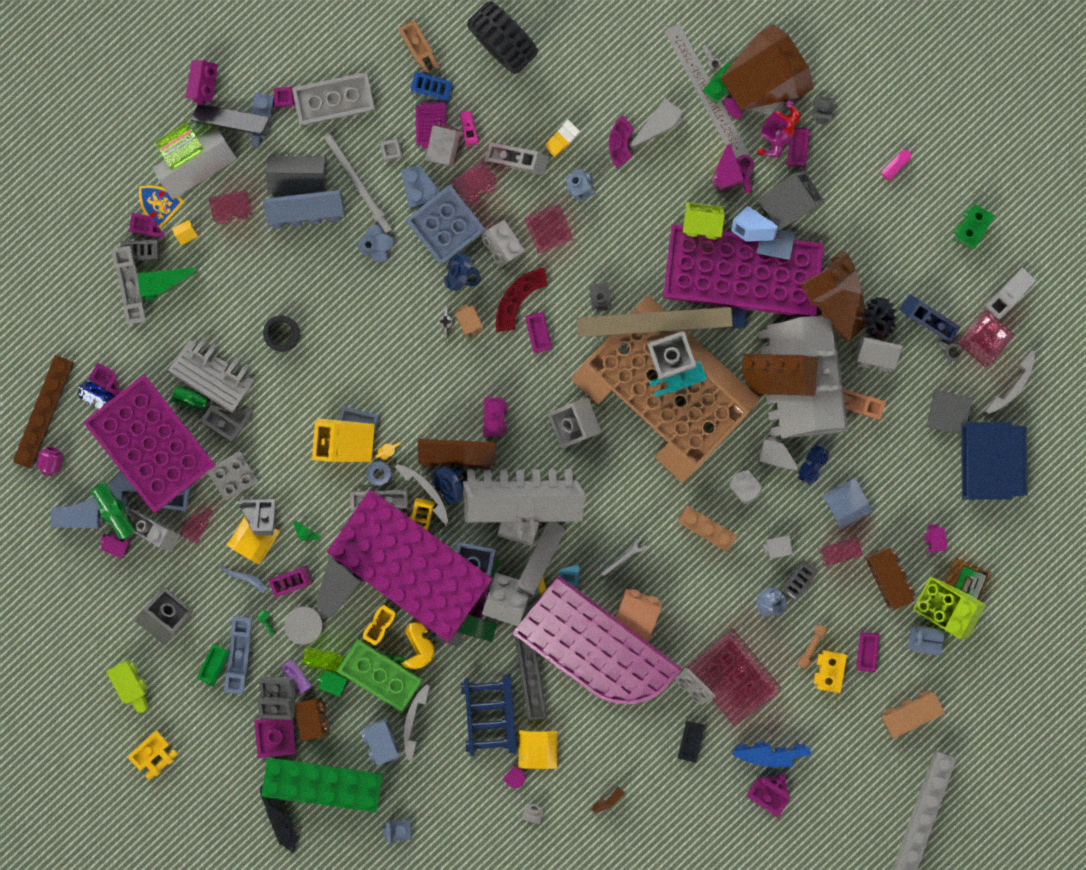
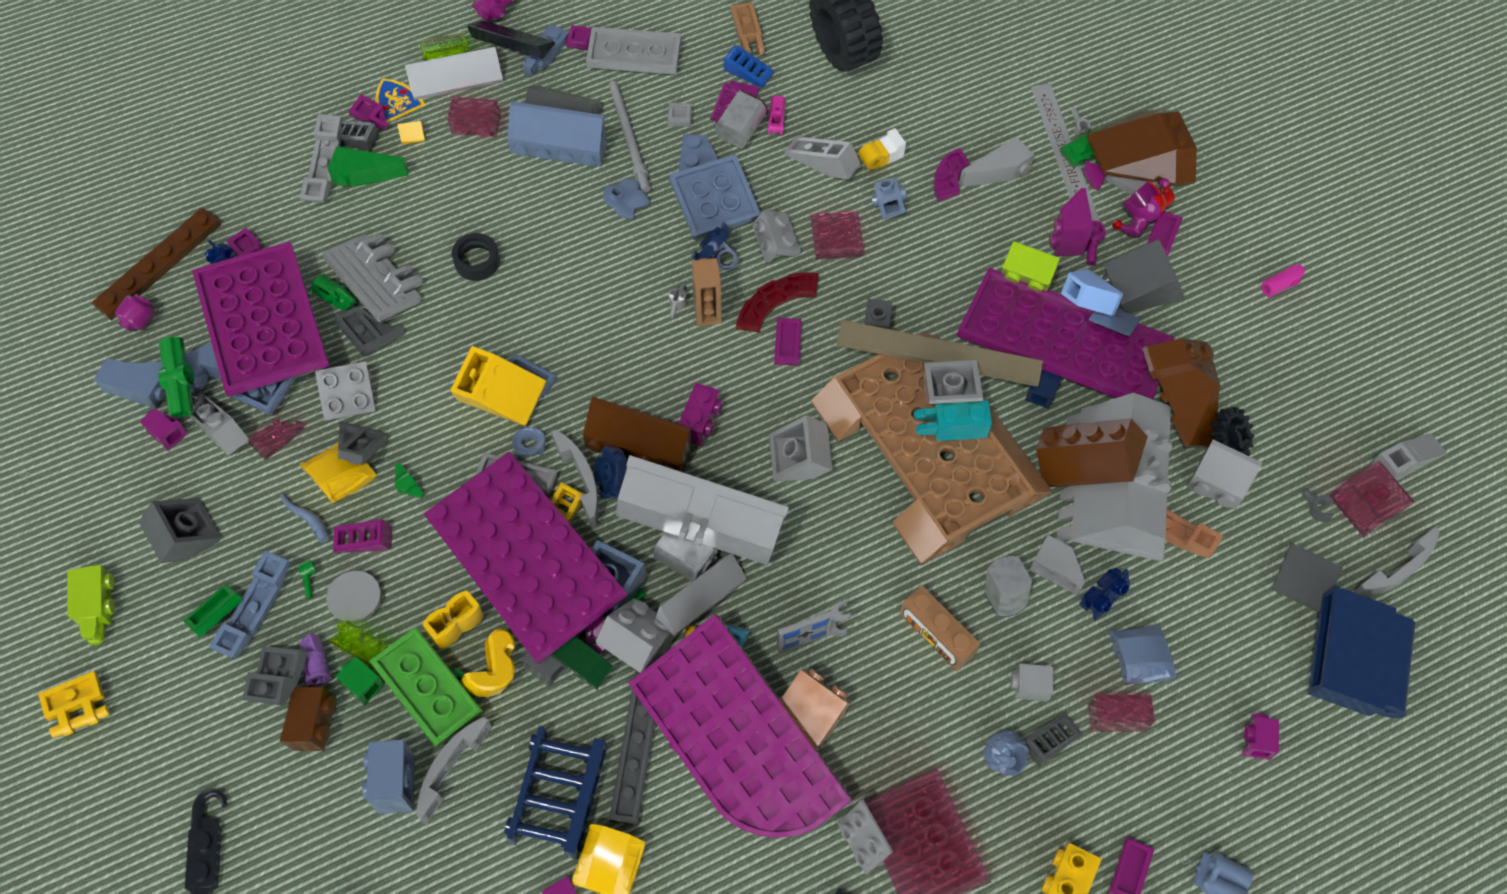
camera: 15 degrees right, 25 degrees down
(275, 737) = (250, 732): magenta tile -> none
(322, 784) = (282, 815): green brick -> none
(336, 587) = (414, 555): dark grey slope -> none
(386, 451) = (549, 417): yellow piece -> none
(475, 183) = (765, 159): clear pink brick -> none
(804, 661) = (1066, 820): medium nougat bar -> none
(822, 110) = (1202, 203): dark grey bracket -> none
(890, 578) = (1187, 767): reddish brown brick -> none
(929, 318) = (1298, 455): dark blue slope -> none
(949, 608) = (1268, 839): lime slope -> none
(967, 578) = (1295, 813): tile -> none
(973, 226) = (1372, 369): green brick -> none

